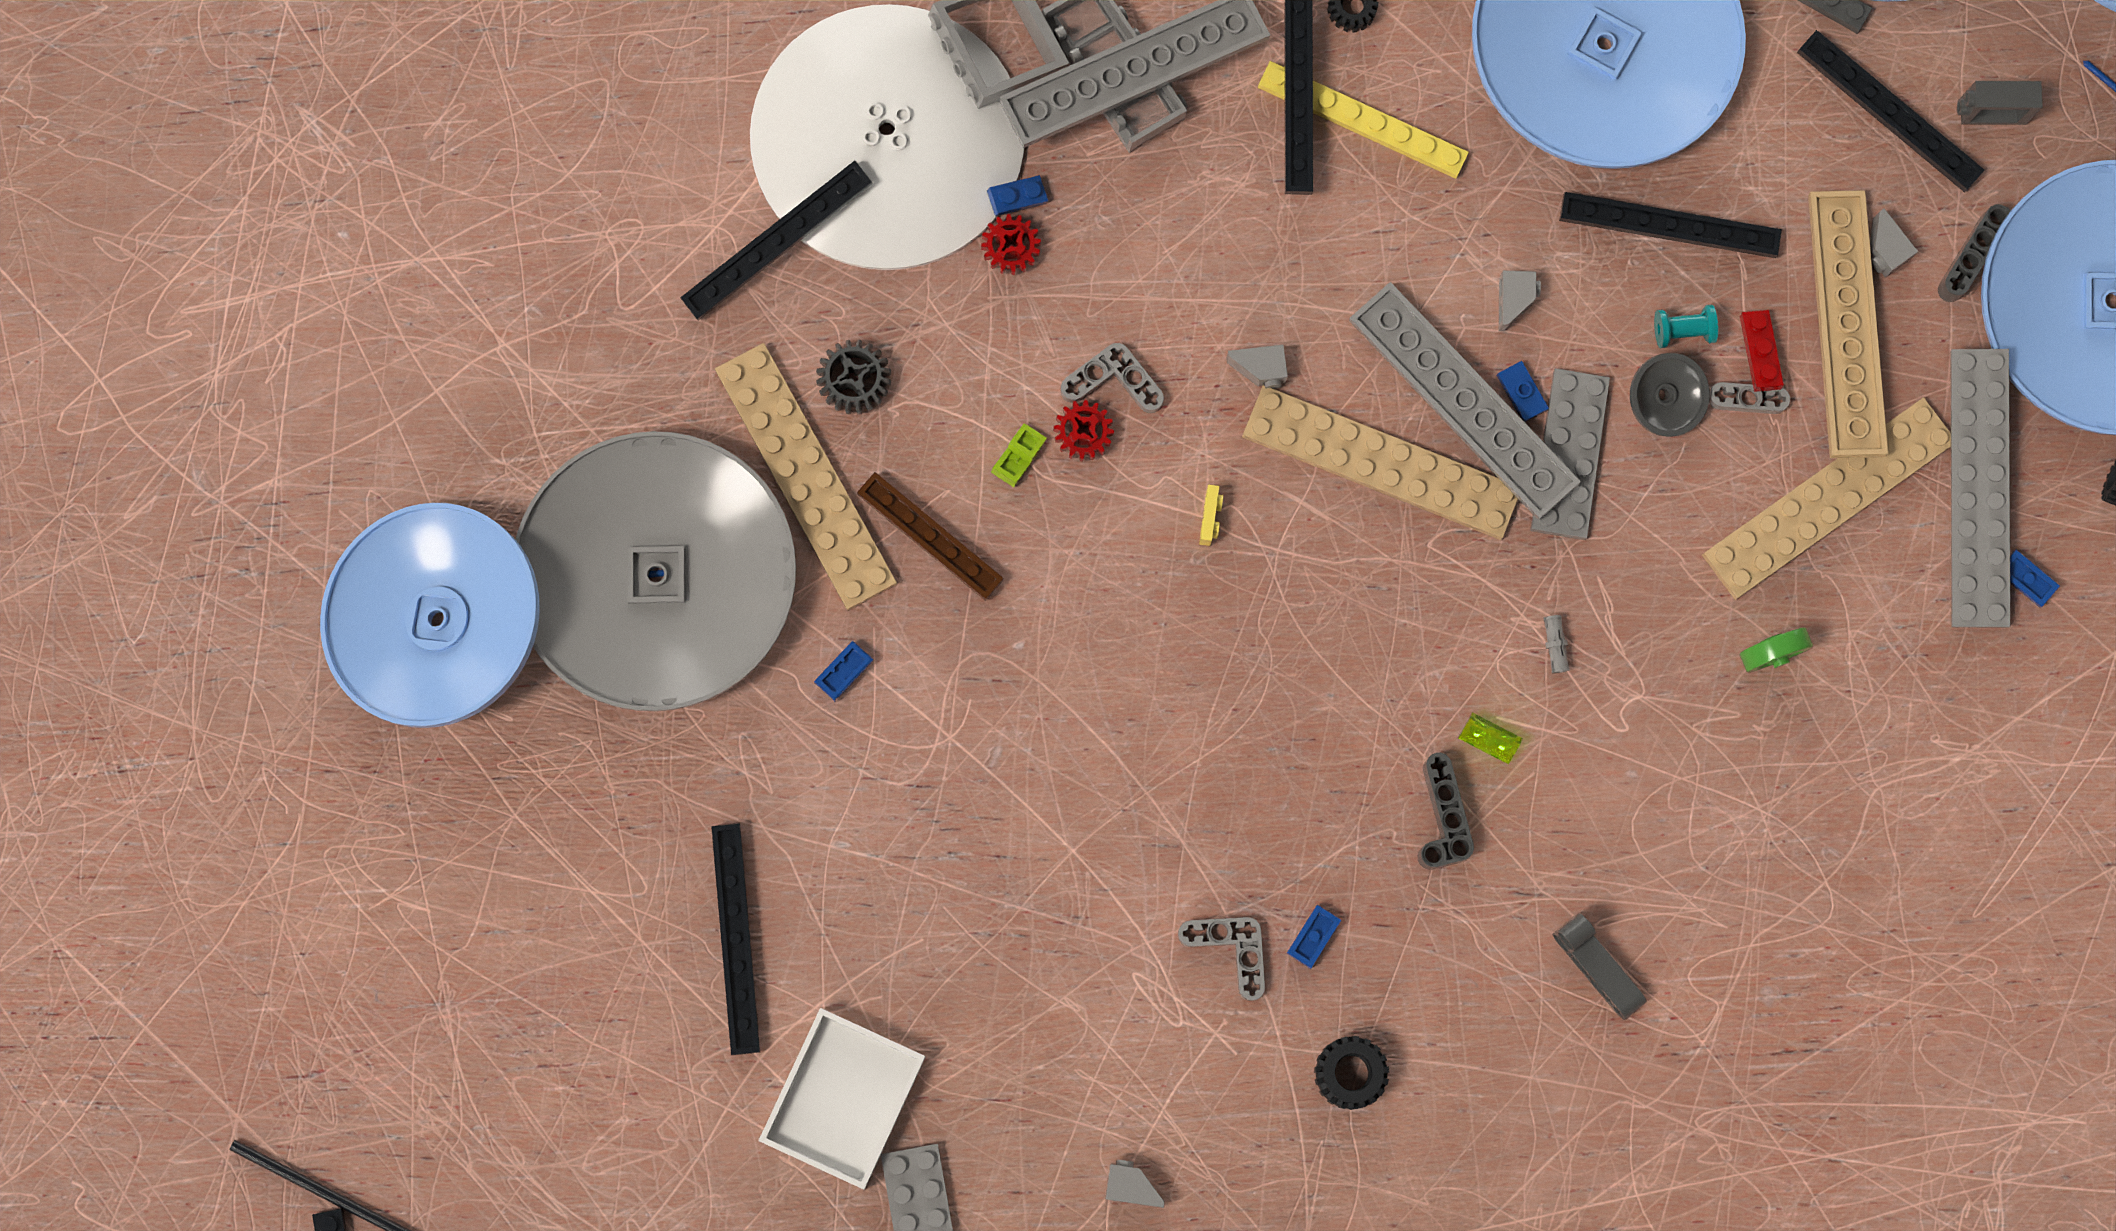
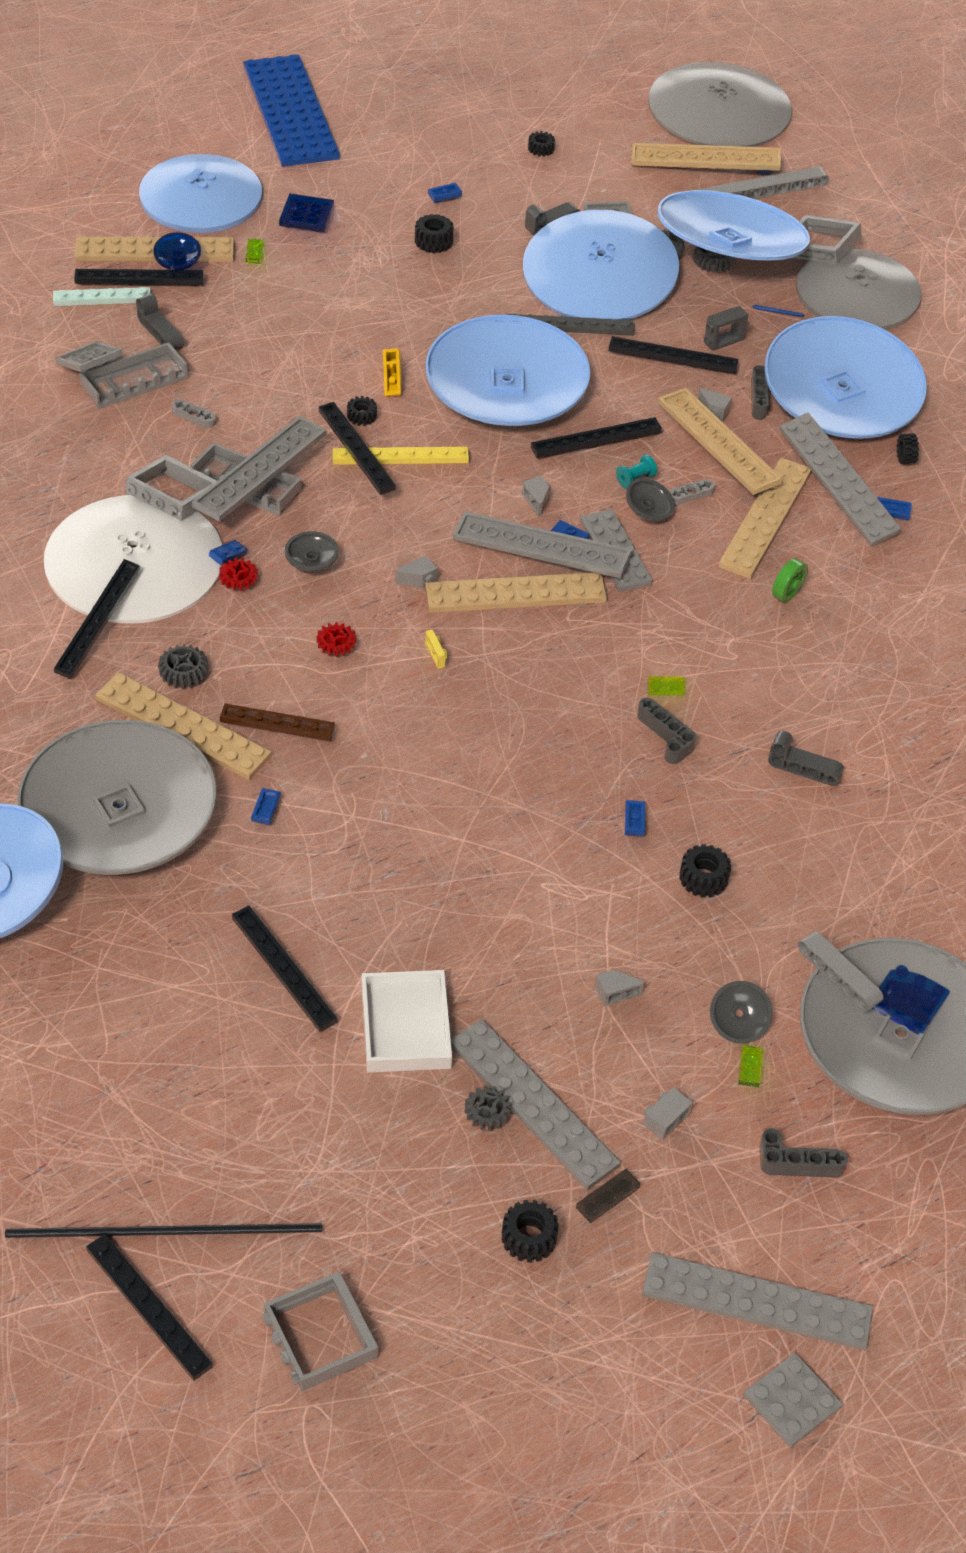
camera: 25 degrees left, 30 degrees down
(1019, 455) = (305, 667): lime slope -> none
(1110, 369) = (336, 604): light grey beam -> none
(1132, 239) = (311, 551): none -> dark grey dish
(1242, 945) = (594, 840): light grey beam -> none
(1556, 644) = (670, 631): light grey pin -> none
(1761, 350) = (683, 468): red plate -> none

